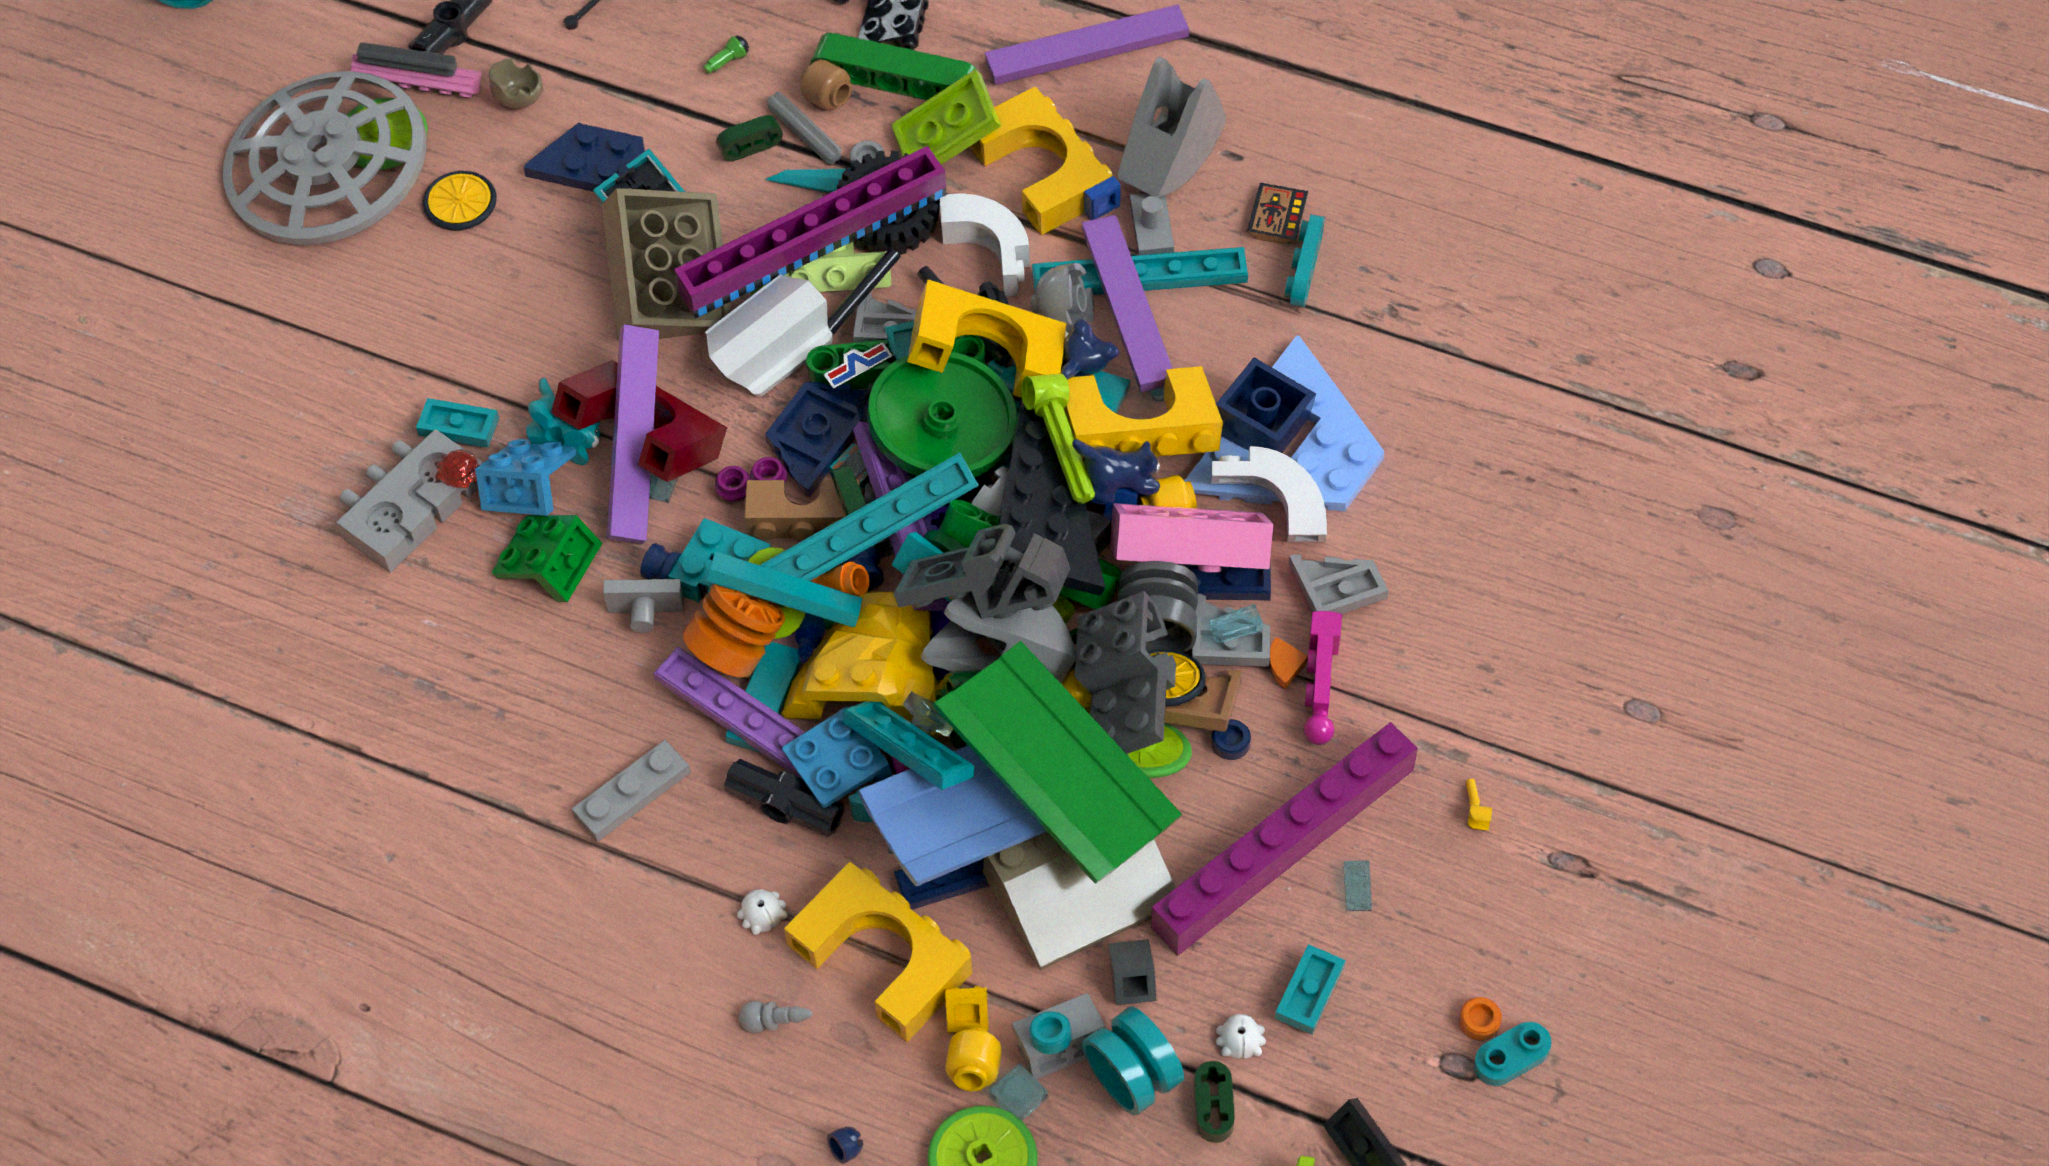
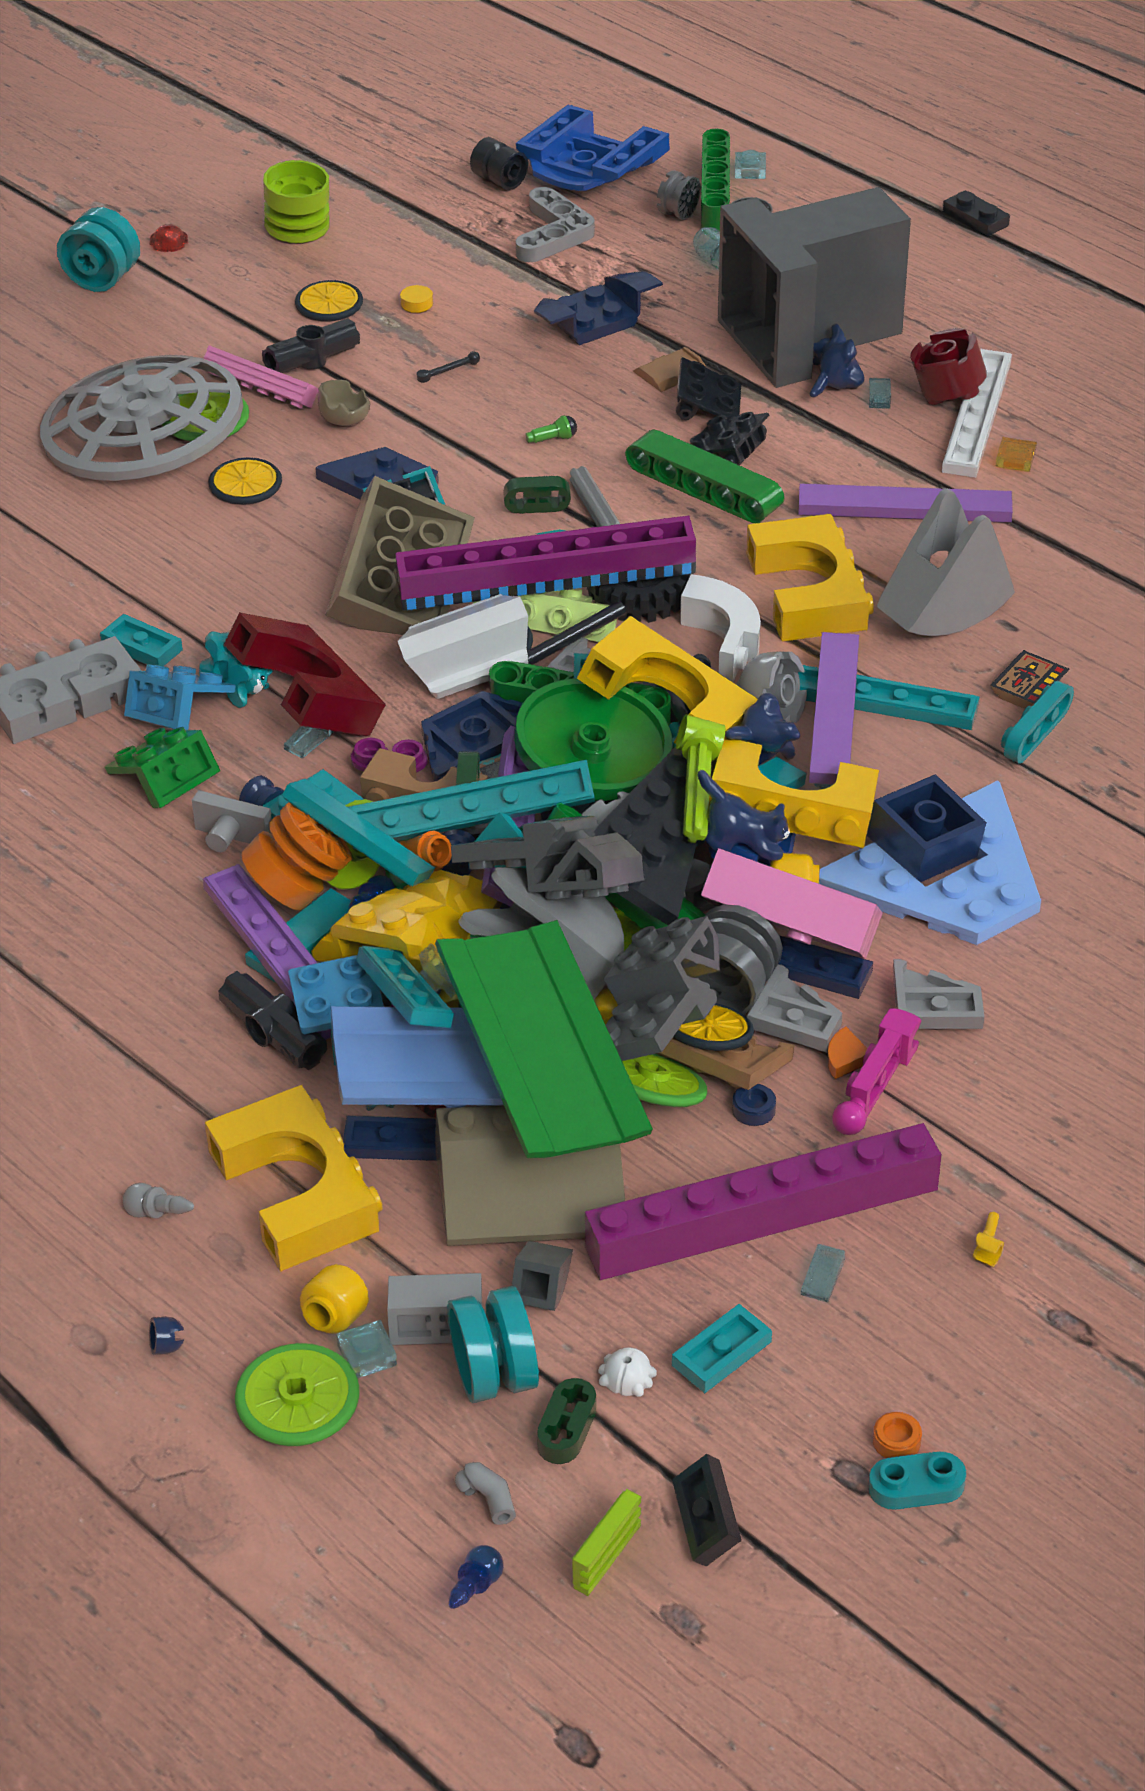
camera: 20 degrees right, 15 degrees down
(407, 59) = (254, 358): dark grey axle -> none
(457, 468) = (114, 668): clear red animal -> none
(631, 423) = (305, 655): medium lavender tile -> none
(631, 790) = (131, 975): light grey plate -> none
(761, 918) = (196, 1109): white animal -> none
(825, 85) = (631, 470): medium nougat head -> none
(857, 363) = (532, 682): sticker -> none
(949, 120) = (735, 519): lime tile -> none
(966, 1008) = (353, 1249): yellow tile -> none
(1050, 1032) = (420, 1291): teal tile -> none
(1102, 198) = (855, 619): blue tile -> none
(1151, 224) = (896, 654): light grey tile -> none
(1236, 624) = (807, 999): clear light blue piece -> none
(1287, 480) = (917, 884): white arch -> none

